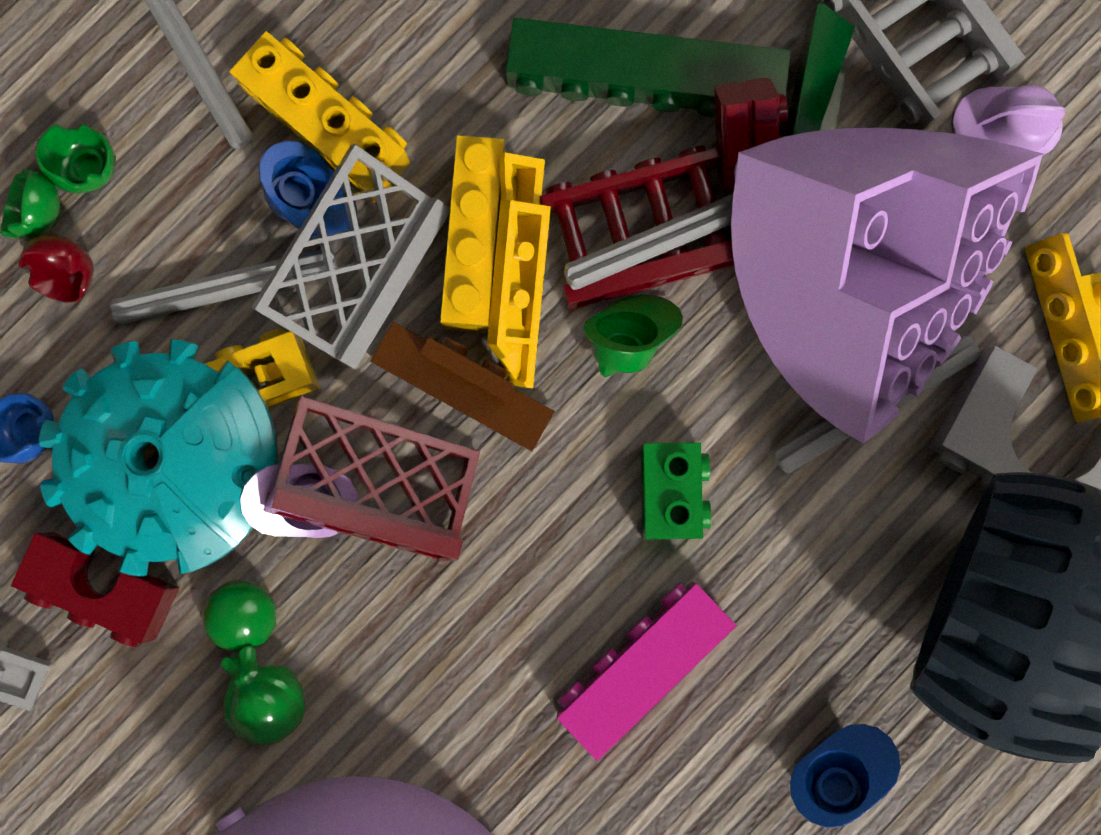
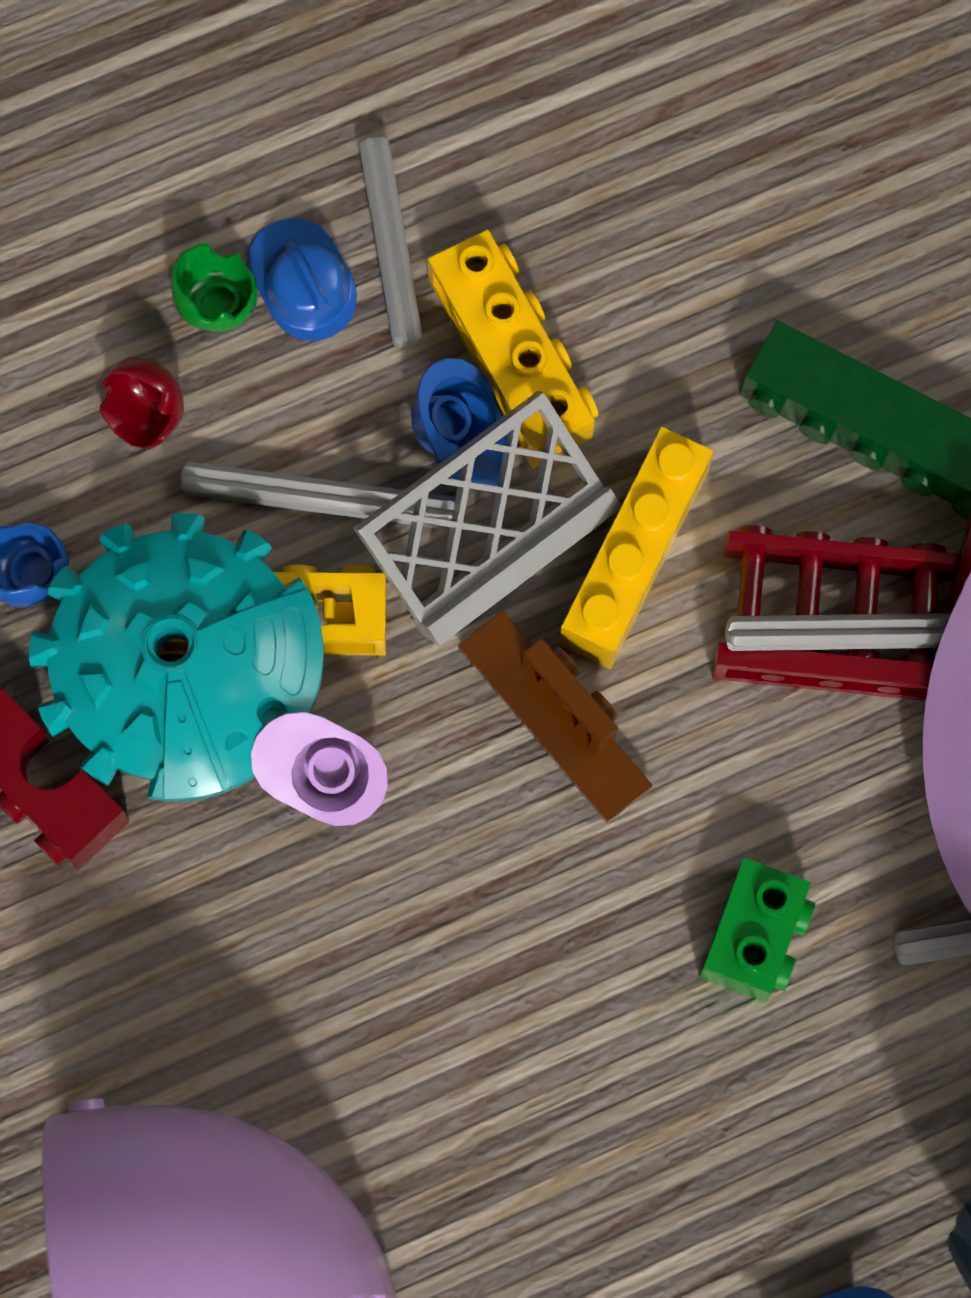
camera: 15 degrees right, 10 degrees down
(30, 206) = (138, 321): green hair -> none
(145, 124) = (302, 279): none -> blue piece
(239, 615) = (189, 879): green hair -> none
(261, 702) = (179, 985): green hat -> none
(361, 520) = (382, 819): dark red fence -> none
(519, 267) = (674, 603): yellow wedge -> none
(630, 332) = (776, 727): green piece -> none
(644, 669) = (644, 1124): dark pink brick -> none

